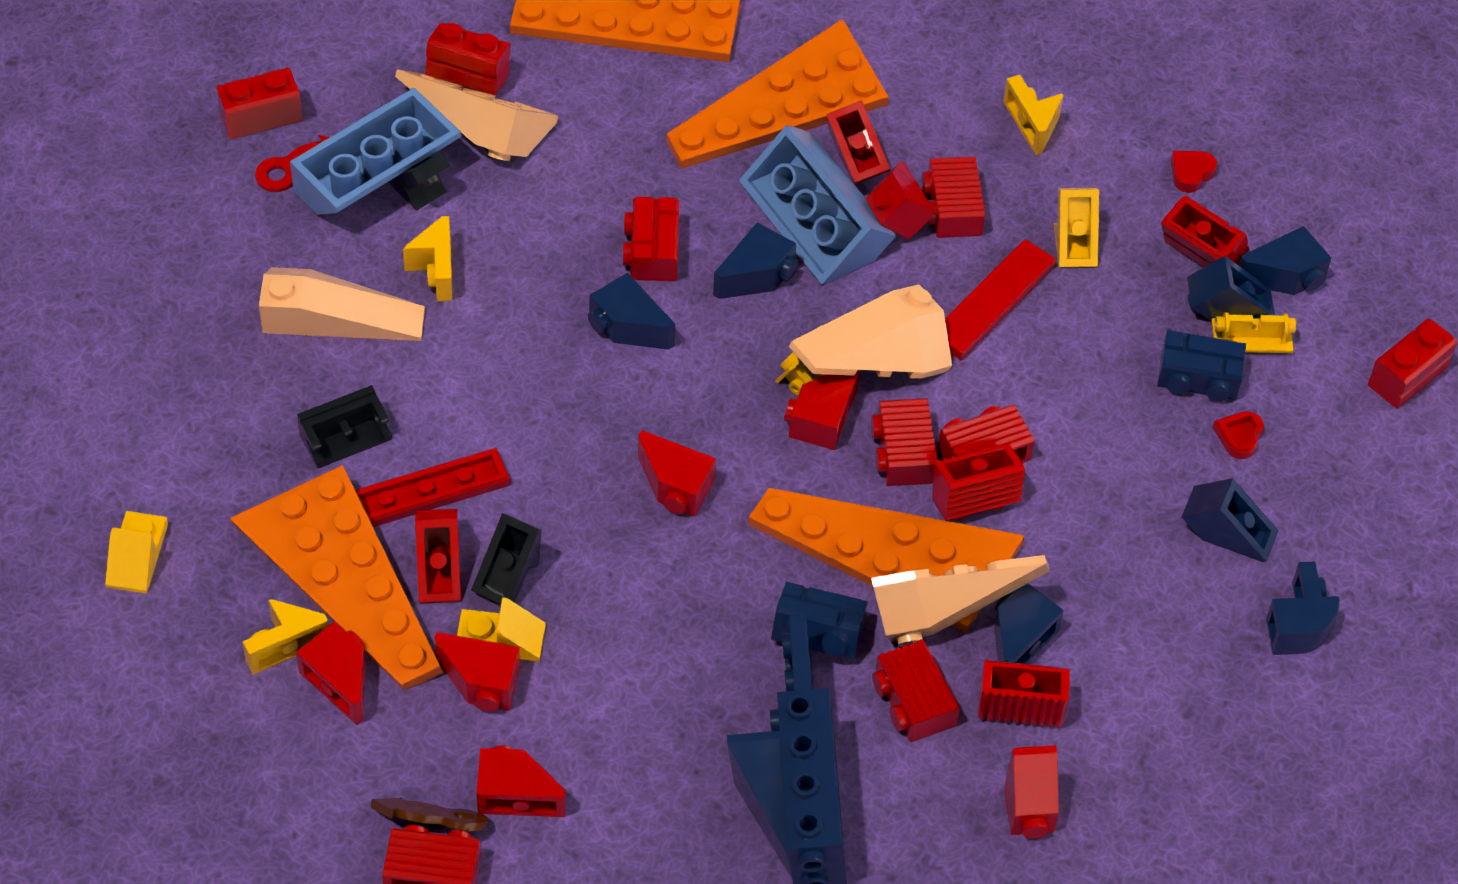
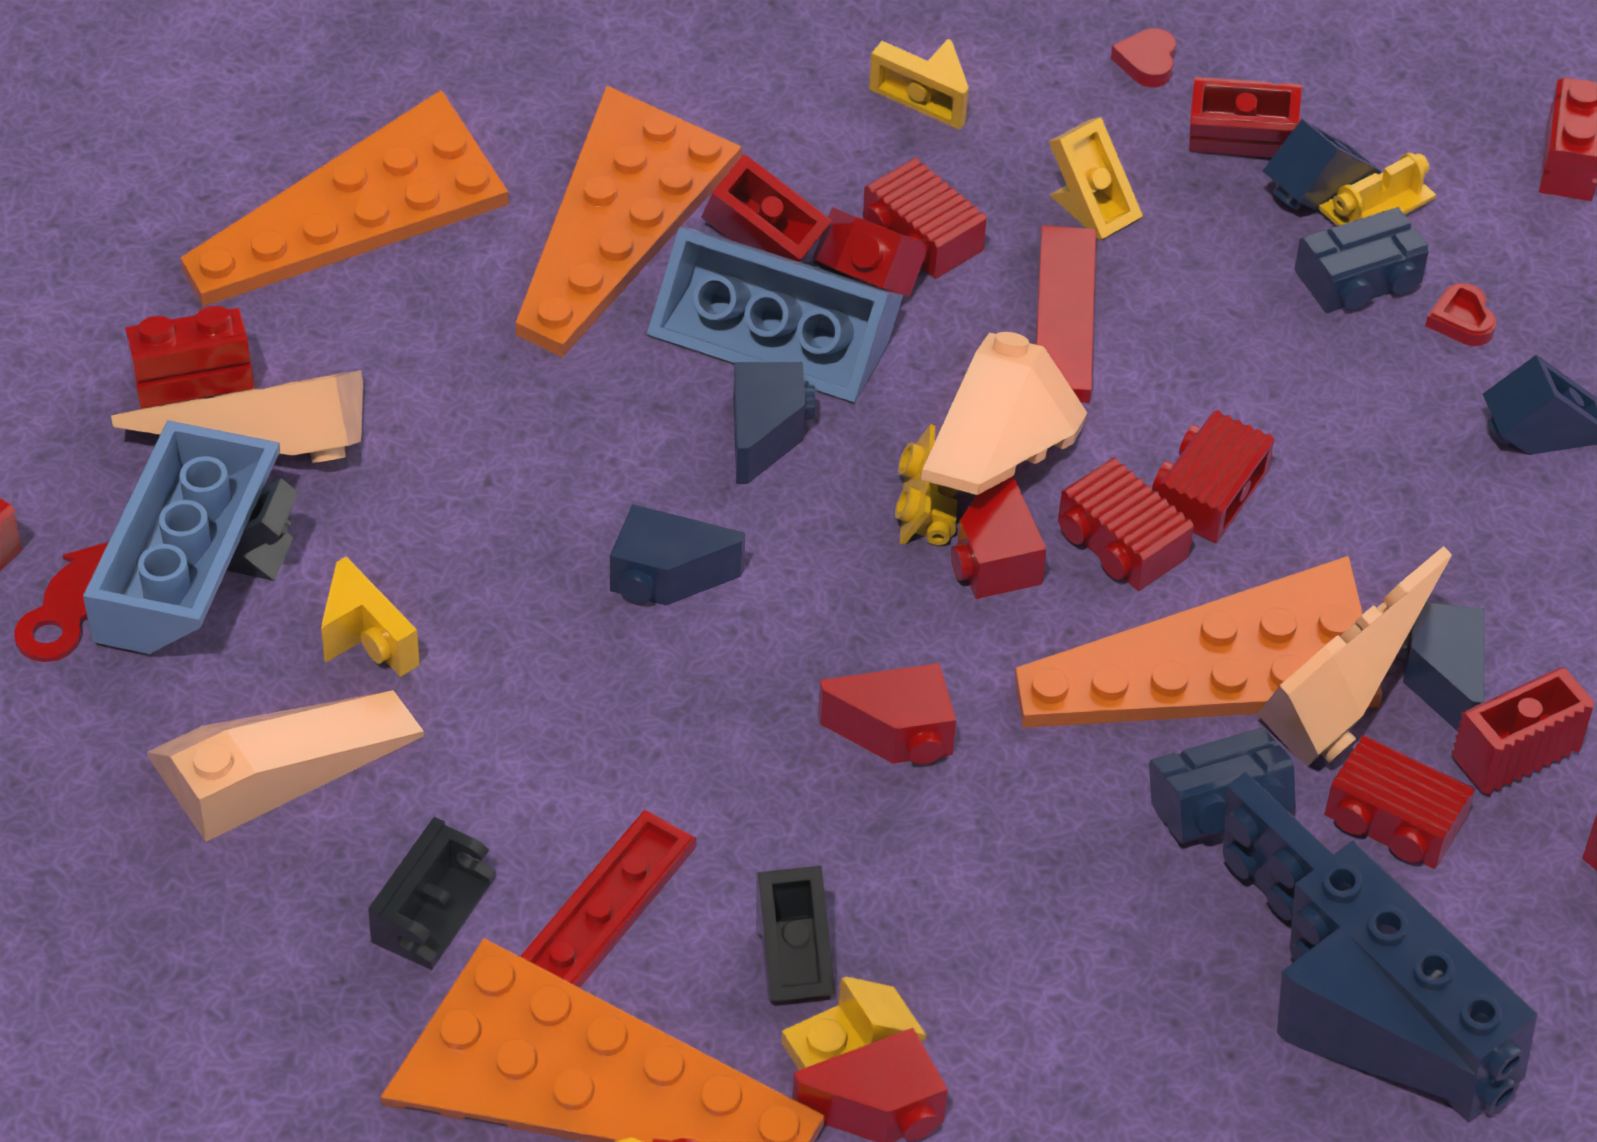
camera: 35 degrees left, 5 degrees down
(438, 555) = (695, 978): red slope -> none
(654, 239) = (615, 452): red brick -> none
(977, 481) = (1253, 521): red brick -> none
(1289, 263) = (1355, 98): dark blue slope -> none

